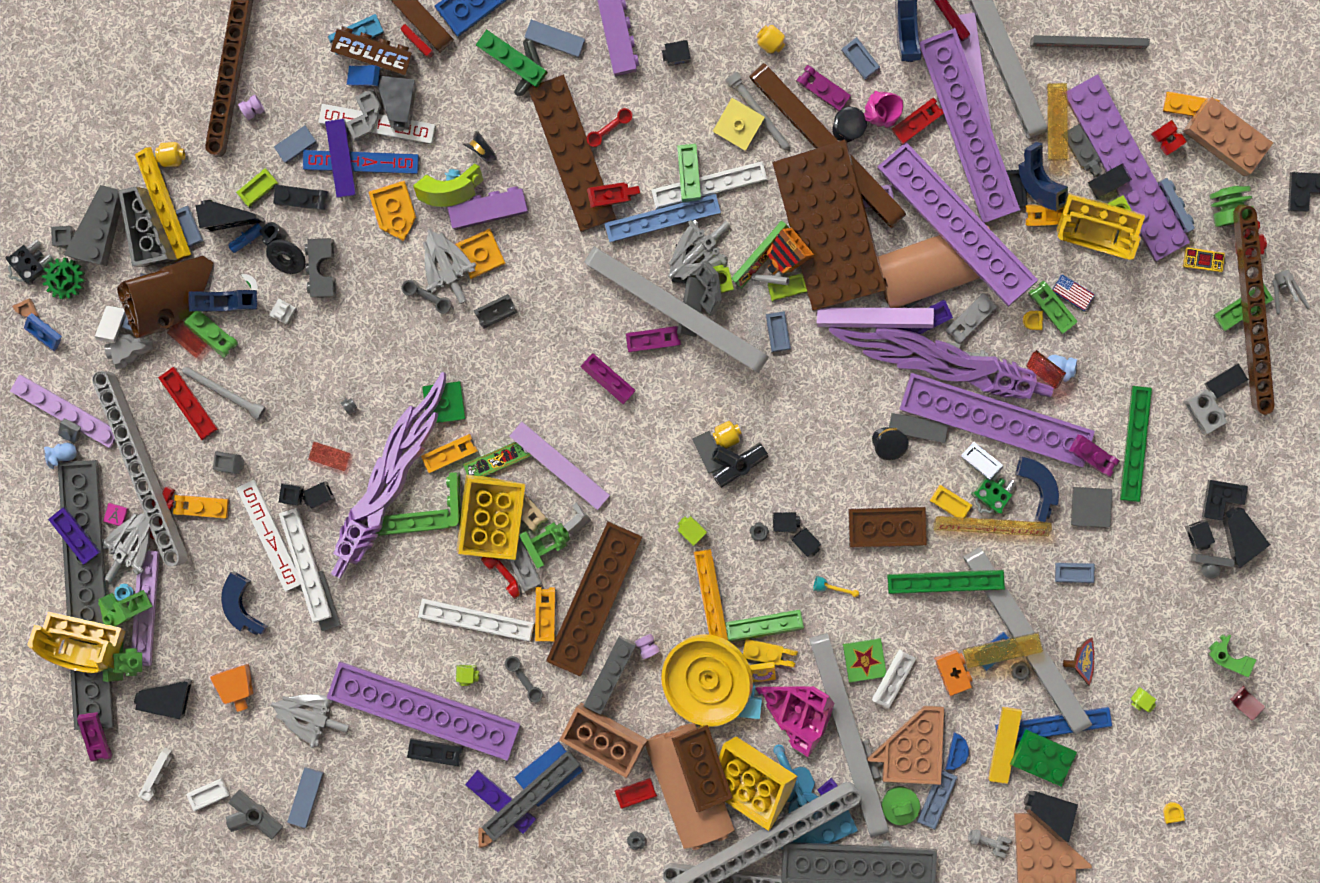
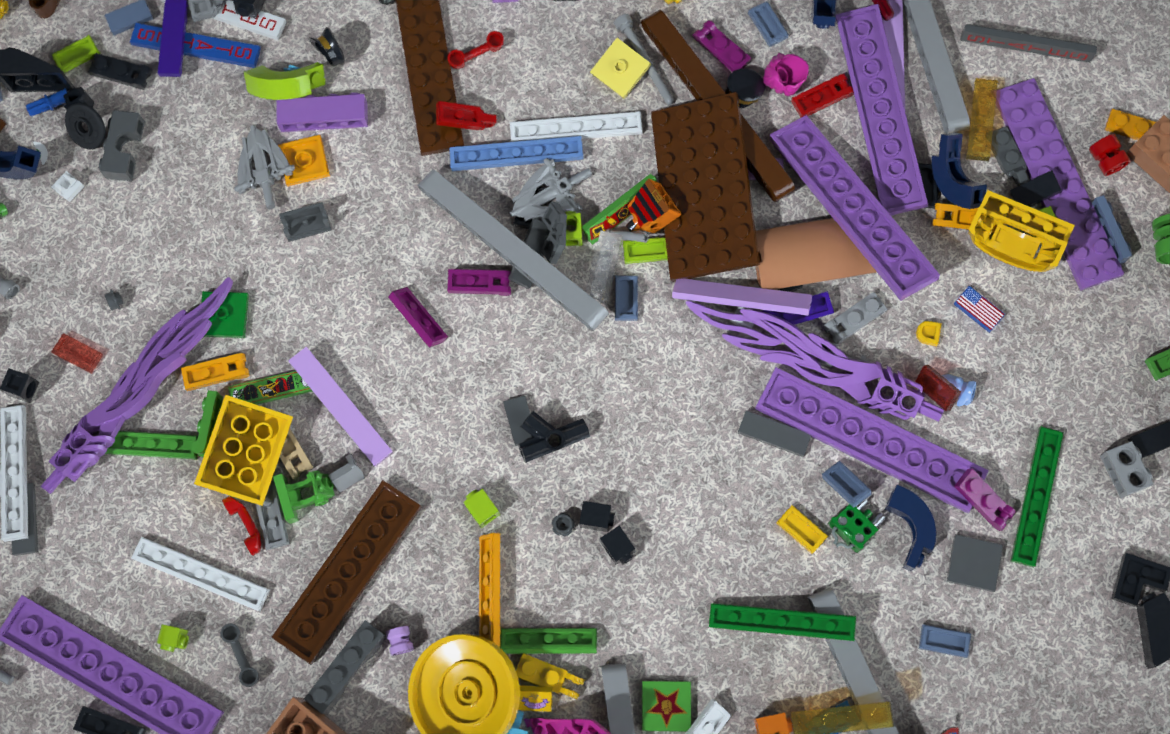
camera: 15 degrees right, 15 degrees down
(318, 495) = (51, 393): black brick -> none
(393, 209) = (218, 99): light orange tile -> none
(411, 287) = (218, 183): dark grey bar -> none
(545, 614) = (283, 581): light orange plate -> none
(689, 172) = (555, 108): plate -> none
(727, 434) = (545, 402): yellow head -> none
(821, 585) = (628, 602): hinge -> none
(887, 526) = (720, 544): reddish brown plate -> none
(890, 443) = (738, 445): black piece -> none
(992, 526) = (849, 565): clear yellow tile -> none
(1053, 307) = (954, 321): bright green plate -> none
(1200, 535) = (1107, 619): black brick -> none
(1203, 259) = (1138, 297): tile -> none
(1211, 566) = (1119, 658): dark grey tile -> none

